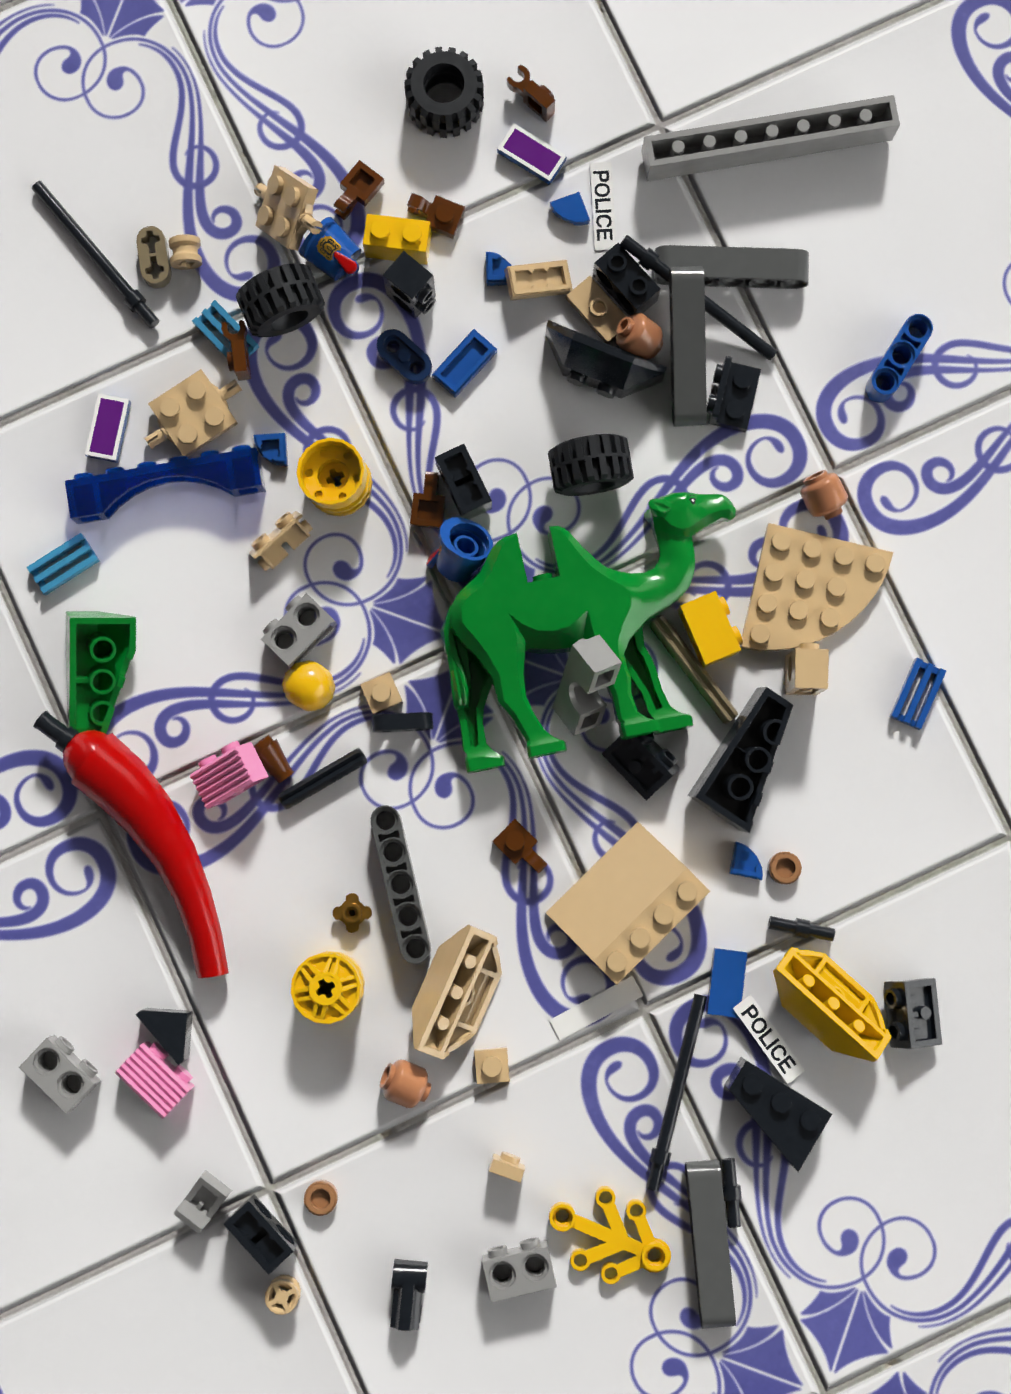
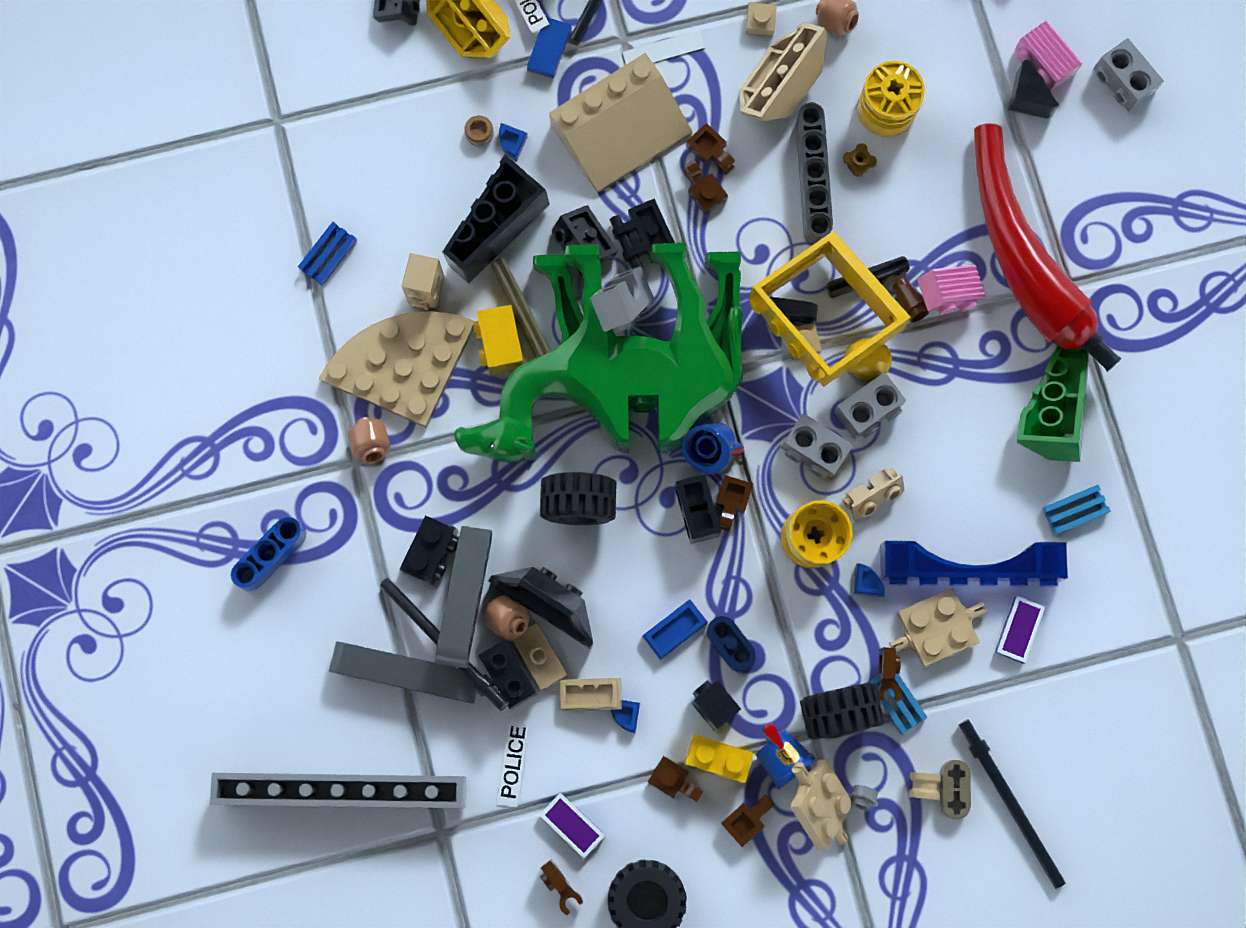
camera: 170 degrees left, 5 degrees down
(245, 230) = (863, 797): none -> light grey plate
(324, 758) = (860, 280): none -> yellow window
(345, 582) = (820, 440): none -> light grey brick
(524, 896) = (709, 146): none -> reddish brown plate
(568, 783) = (650, 227): none -> black plate
(571, 209) = (545, 760): blue tile -> none
(801, 928) = (476, 78): black bar -> none

